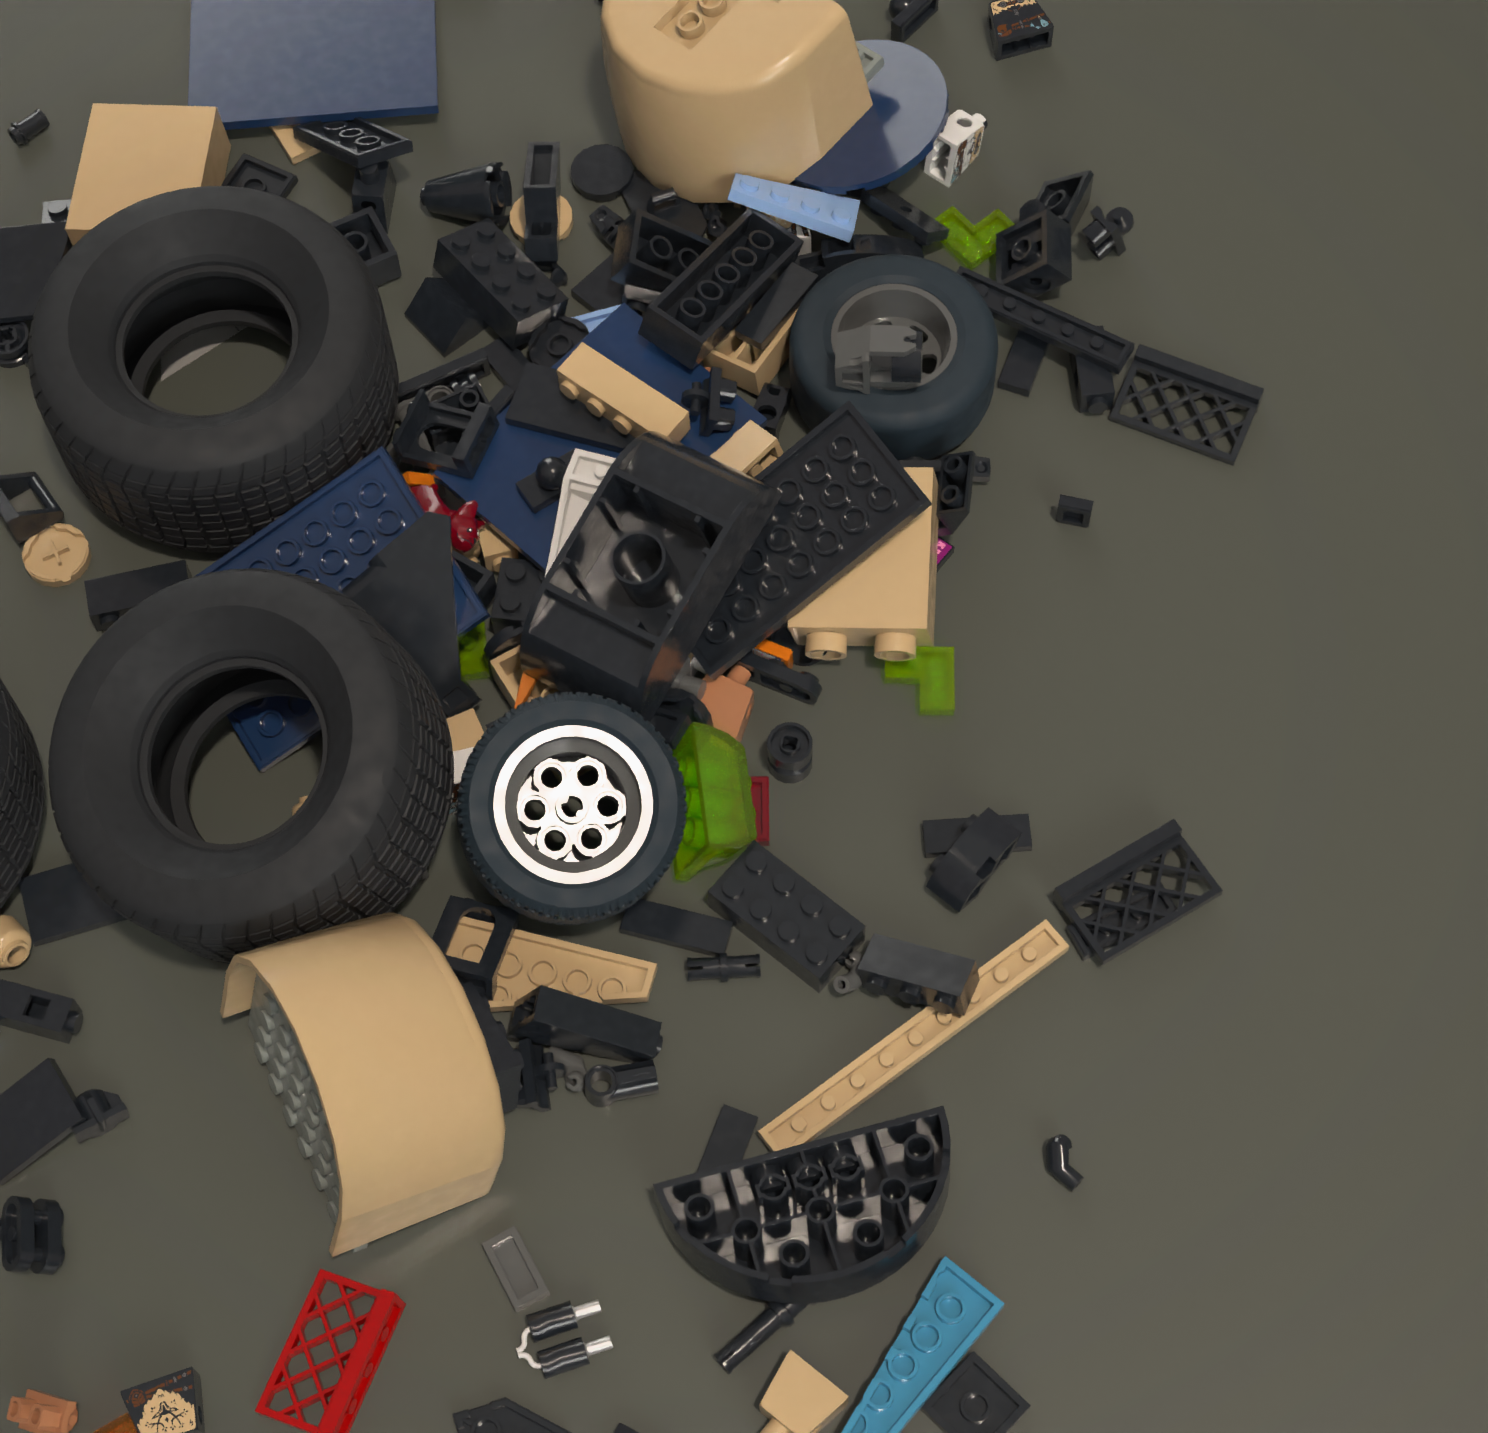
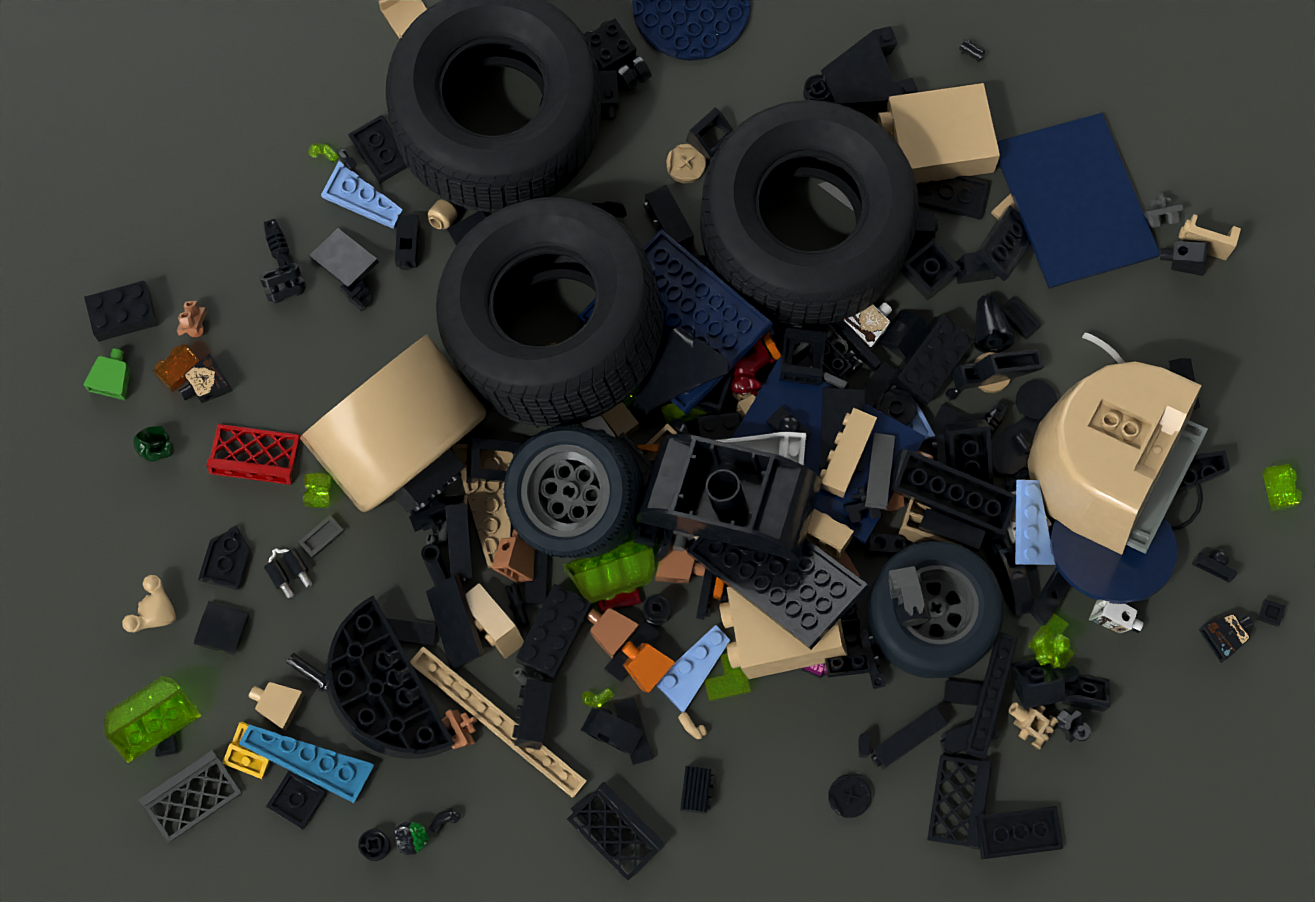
camera: 70 degrees right, 10 degrees up
(416, 349) = (870, 324): none -> torso
(432, 1253) = (317, 490): none -> clear neon green wheel
(473, 156) = (1020, 318): none -> black tile
(561, 61) = (1106, 347): none -> white sticker
(646, 945) = (514, 559): none -> nougat torso
(669, 363) = (880, 471): none -> dark grey tile
(731, 1067) = (455, 622): none -> black tile
(741, 1008) = (493, 621): none -> tan wedge
(806, 828) = (611, 629): none -> nougat torso
(845, 809) = (644, 634): none -> black tile
(877, 786) = (646, 665): none -> orange torso
(900, 733) = (691, 669): none -> light blue wing
(913, 879) = (596, 700): none -> clear neon green arm
(927, 1098) = (462, 726): none -> nougat hips
(987, 749) = (690, 727): none -> tan arm
(999, 224) = (1053, 646): none -> clear neon green hips
(1076, 447) = (908, 738): none -> black brick
(1083, 1286) = (374, 845): none -> black wheel
(1085, 1216) = (411, 837): none -> piece
(1091, 283) = (1033, 723): none -> tan piece
(1094, 760) = (696, 790): none -> black brick
(1146, 552) = (849, 796): none -> black tile
(1250, 337) = (1018, 832): none -> black tile

